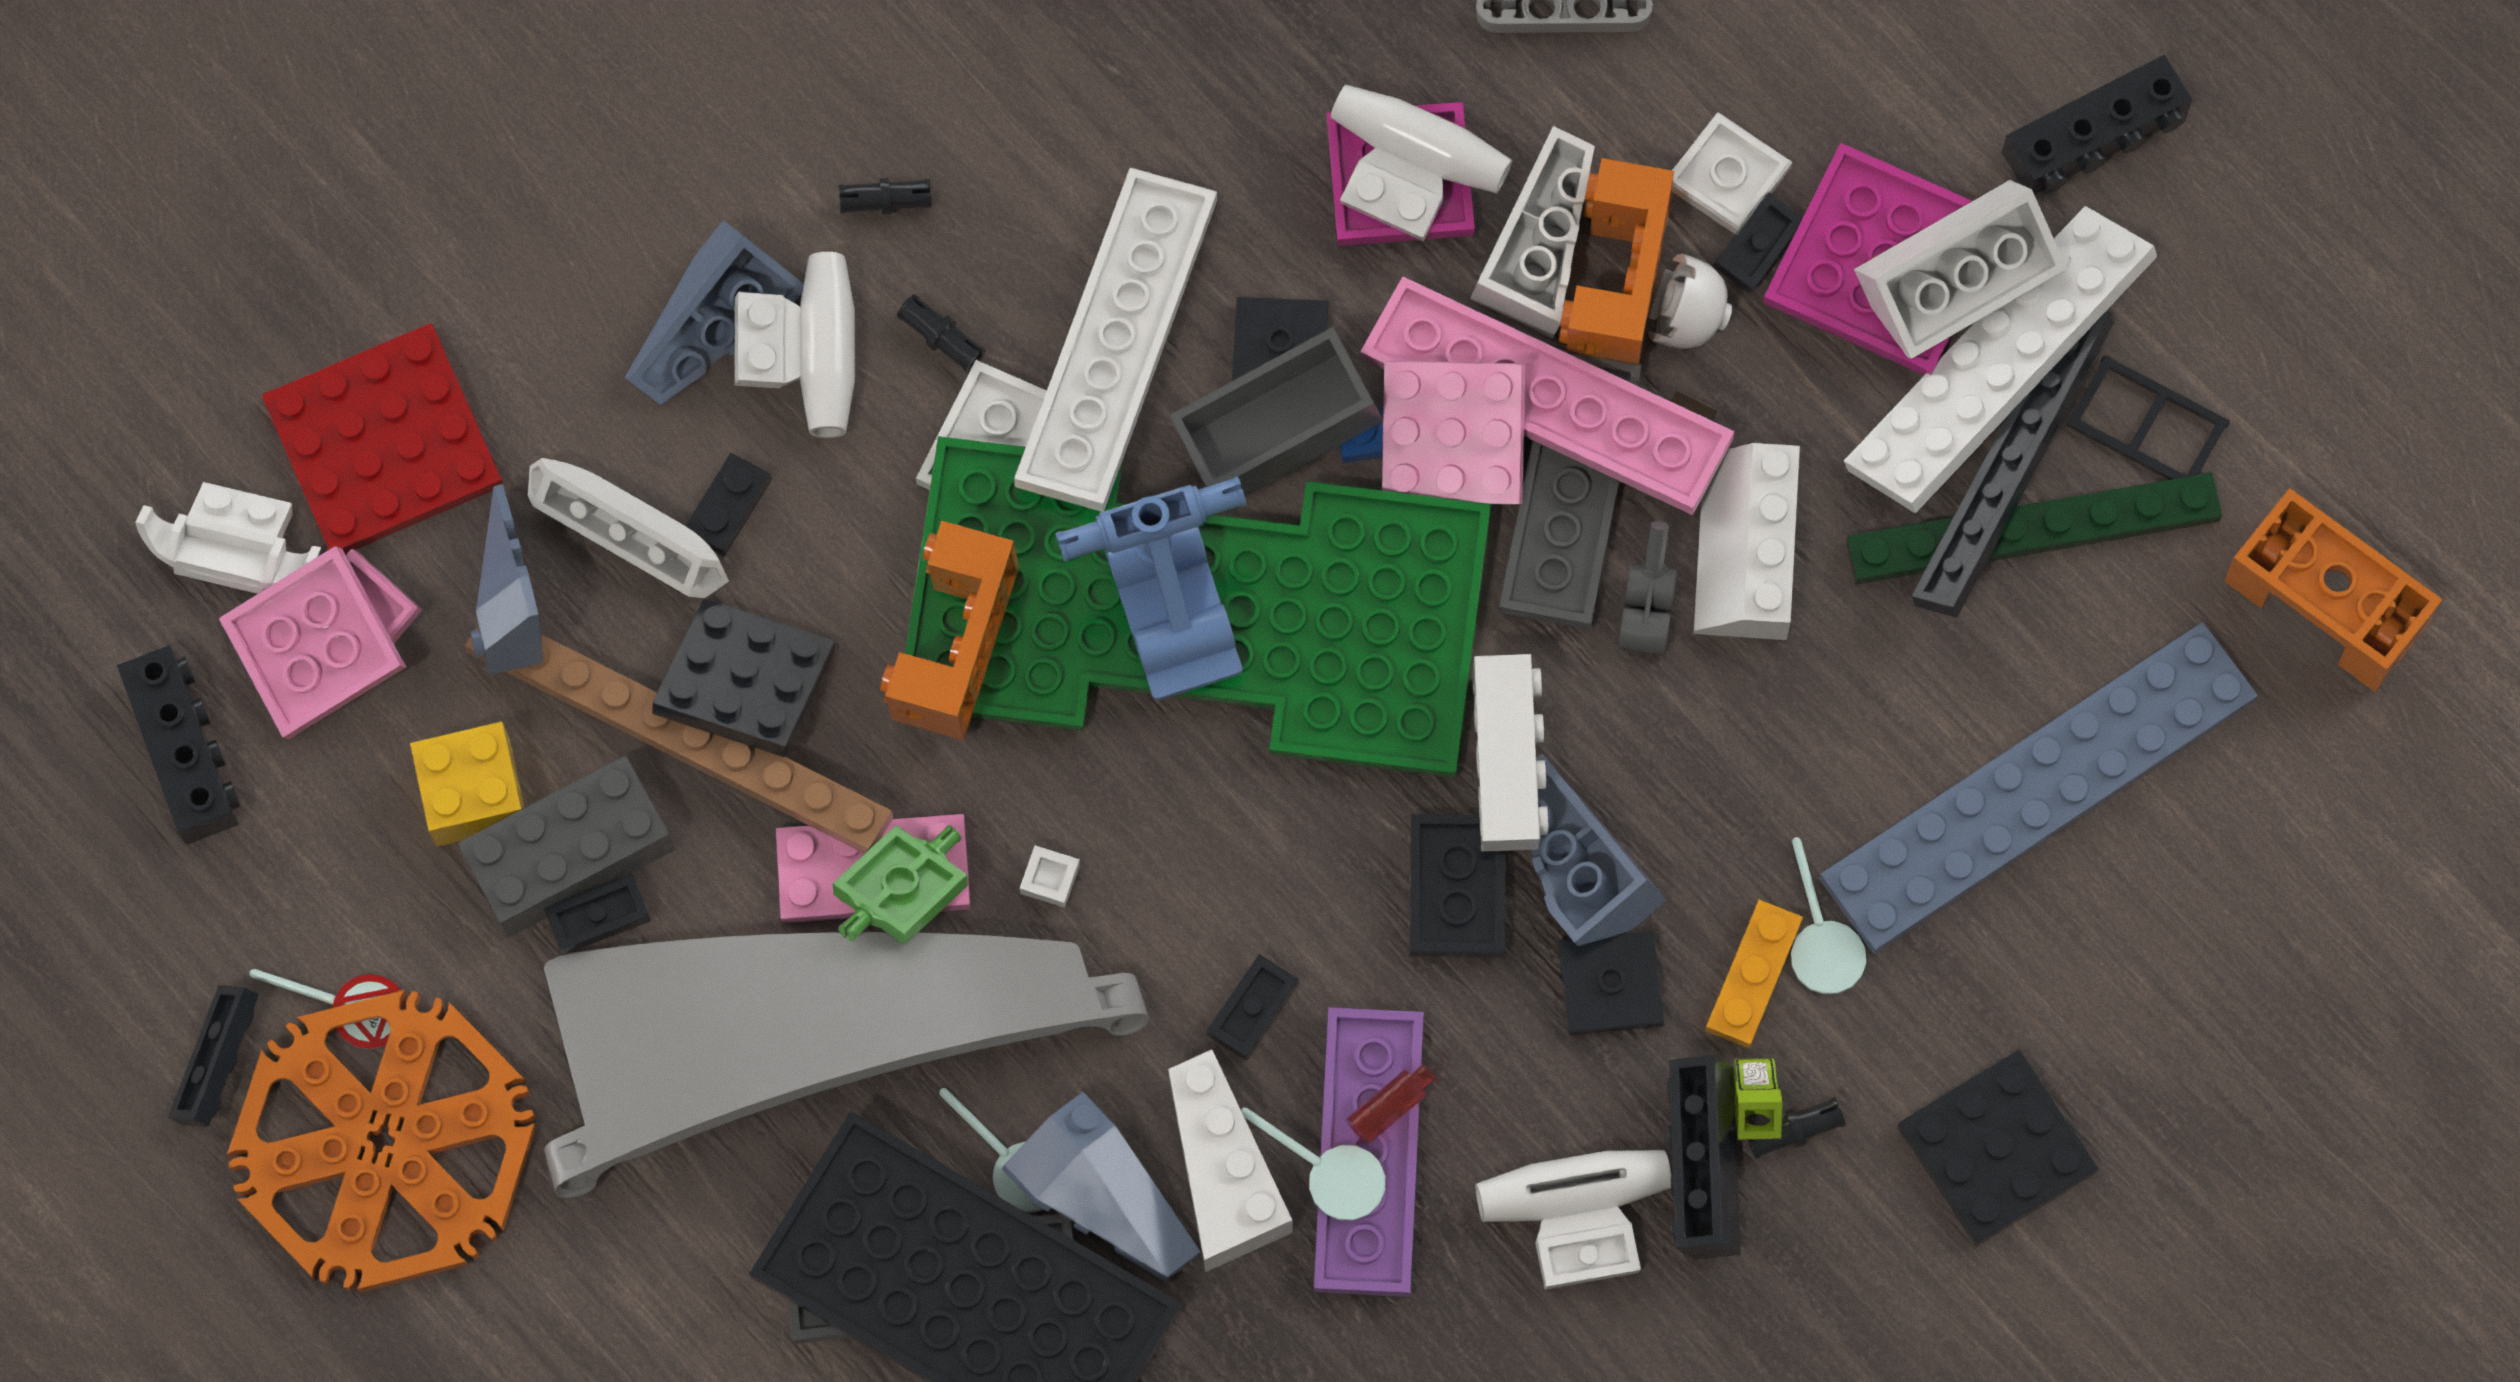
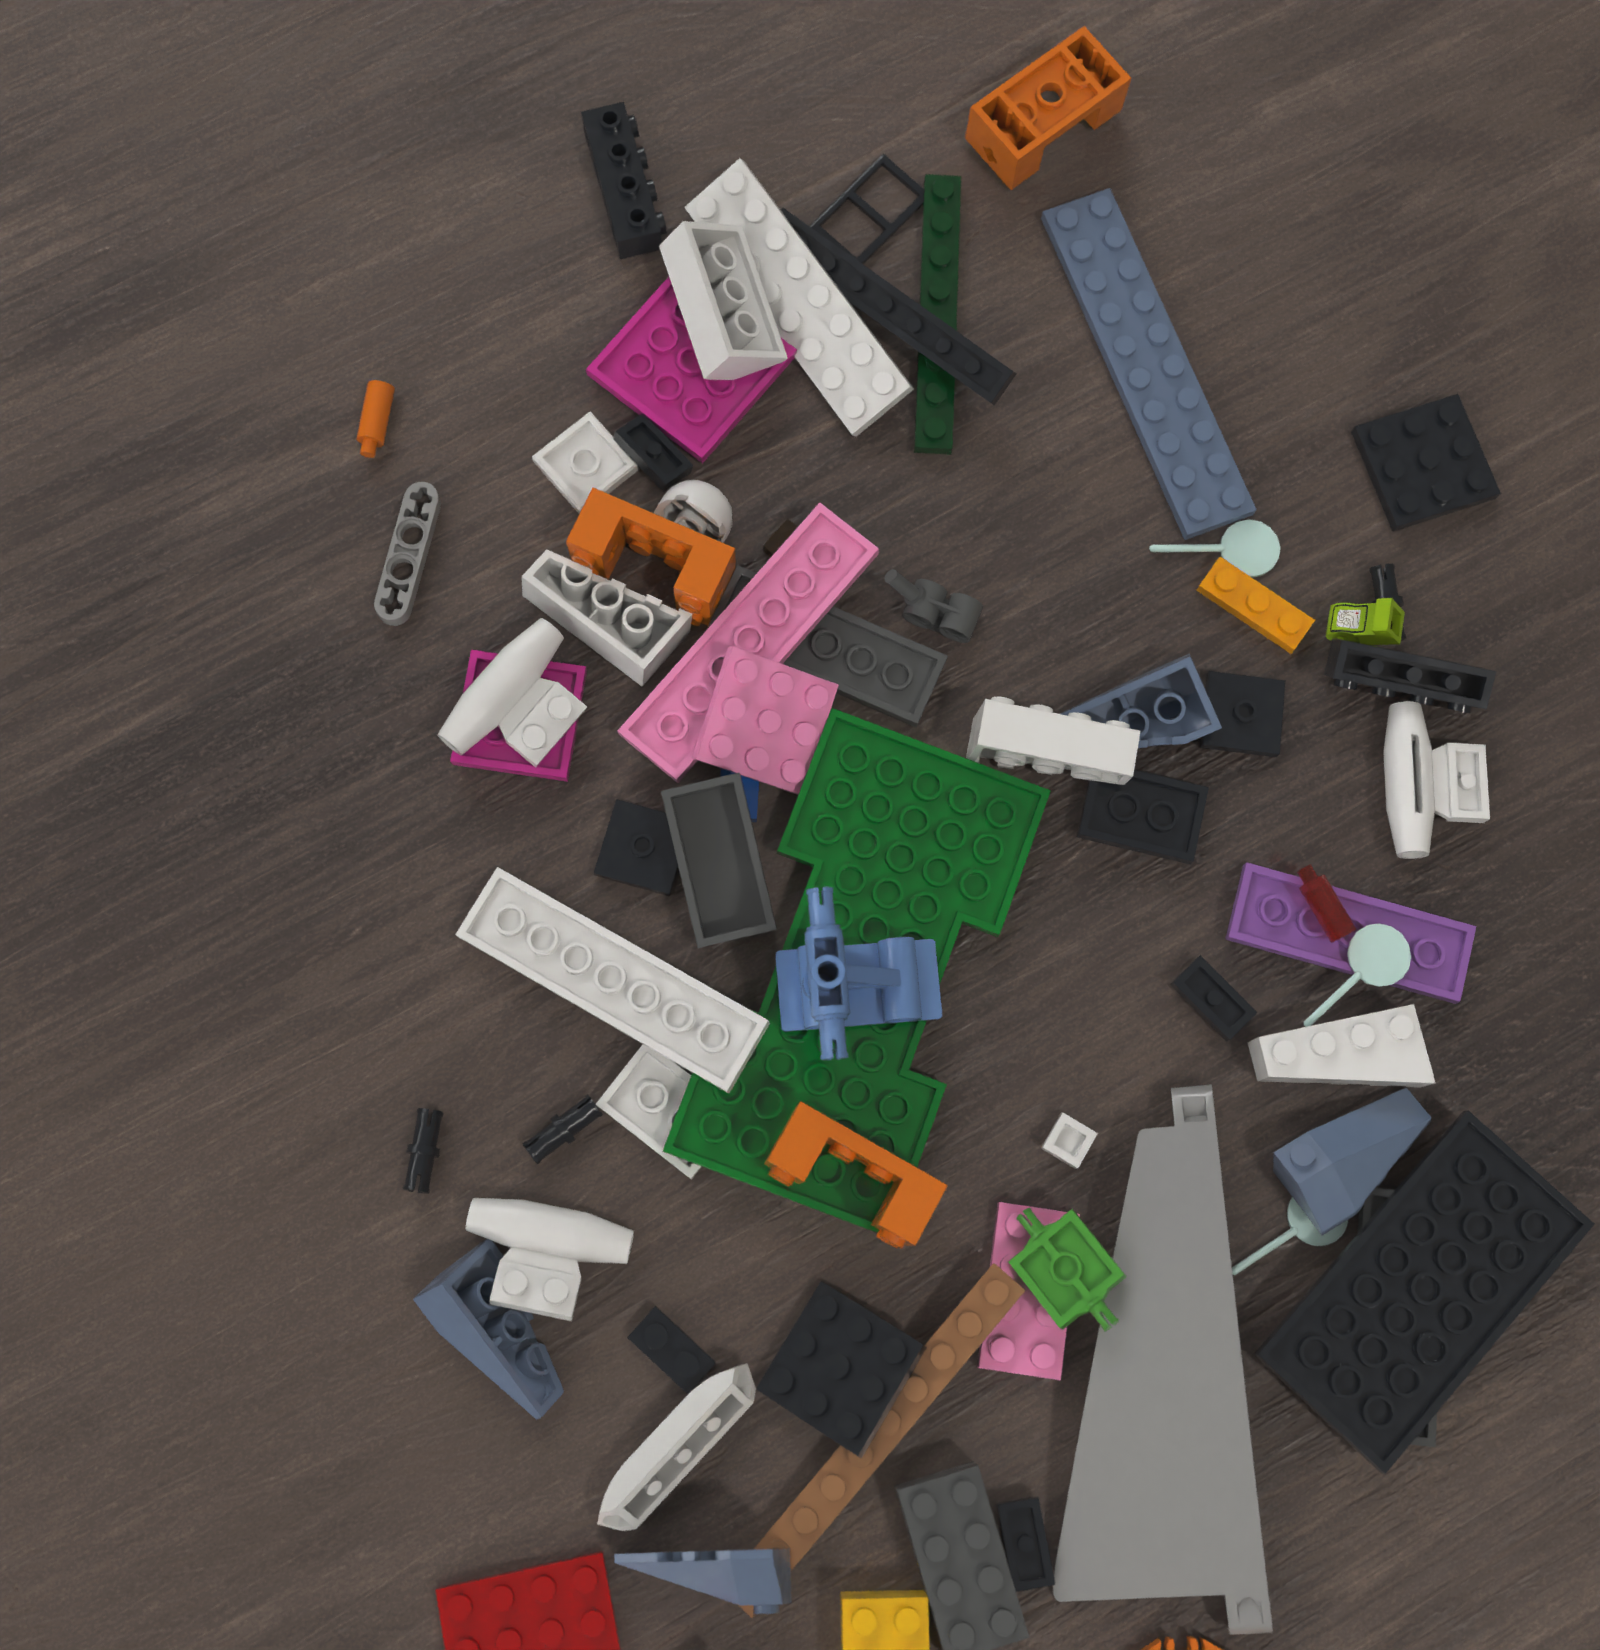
camera: 85 degrees left, 5 degrees up
(1748, 544) = (910, 518): white slope -> none

